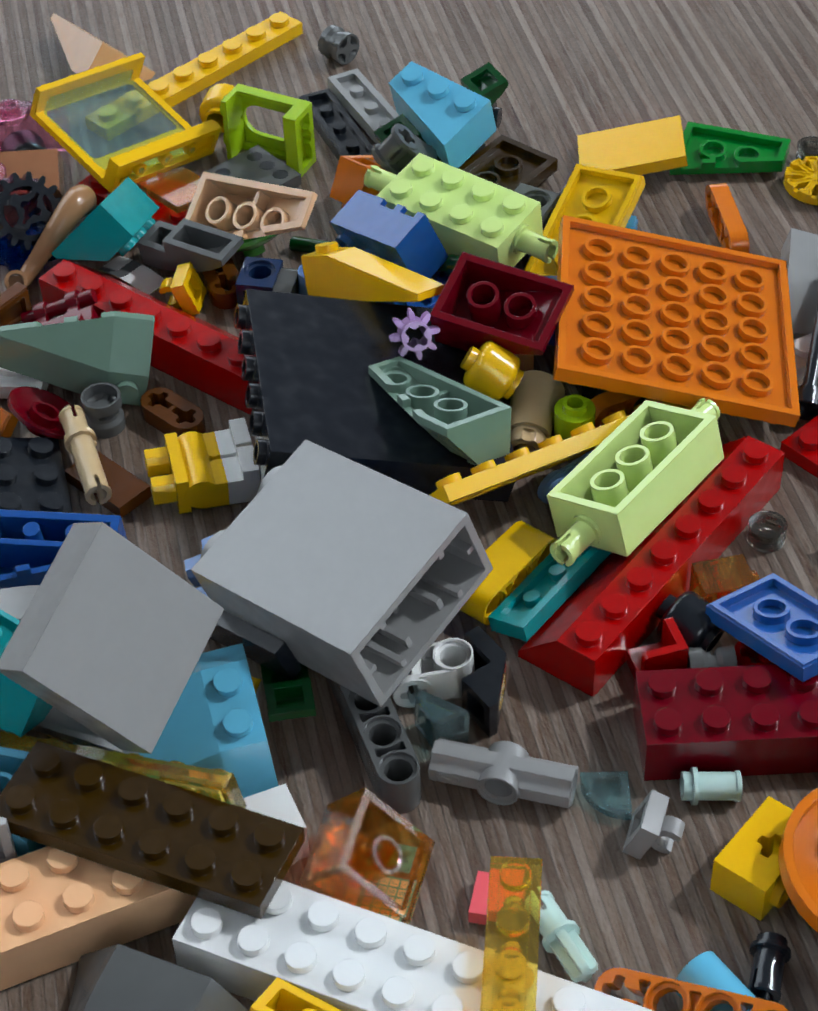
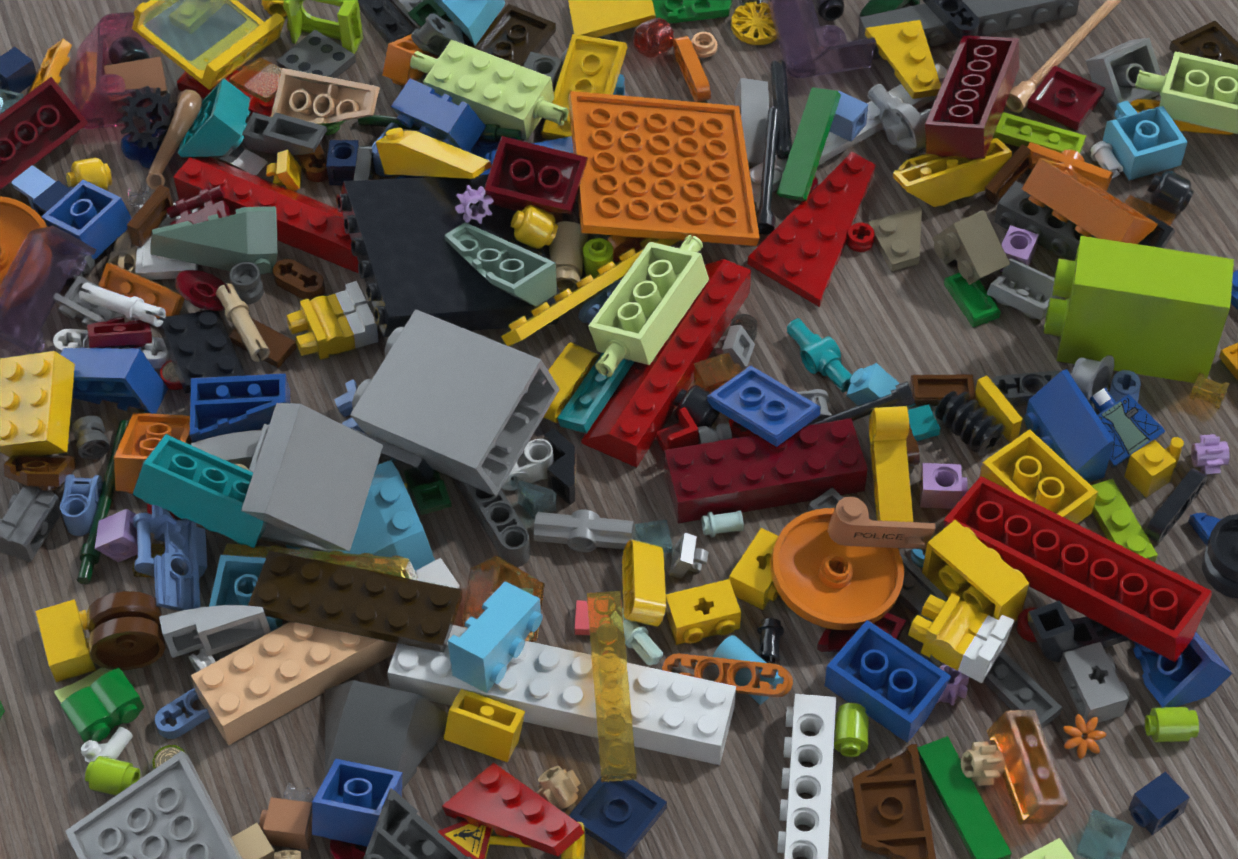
camera: 10 degrees left, 10 degrees up
(337, 903) = (495, 637): none -> medium azure wedge
(581, 857) = (643, 583): none -> yellow beam
(667, 911) = (703, 612): none -> yellow brick
(681, 183) = (653, 37): none -> clear red head
(747, 197) = (704, 44): none -> light nougat plate
(757, 547) = (738, 345): none -> light grey tile

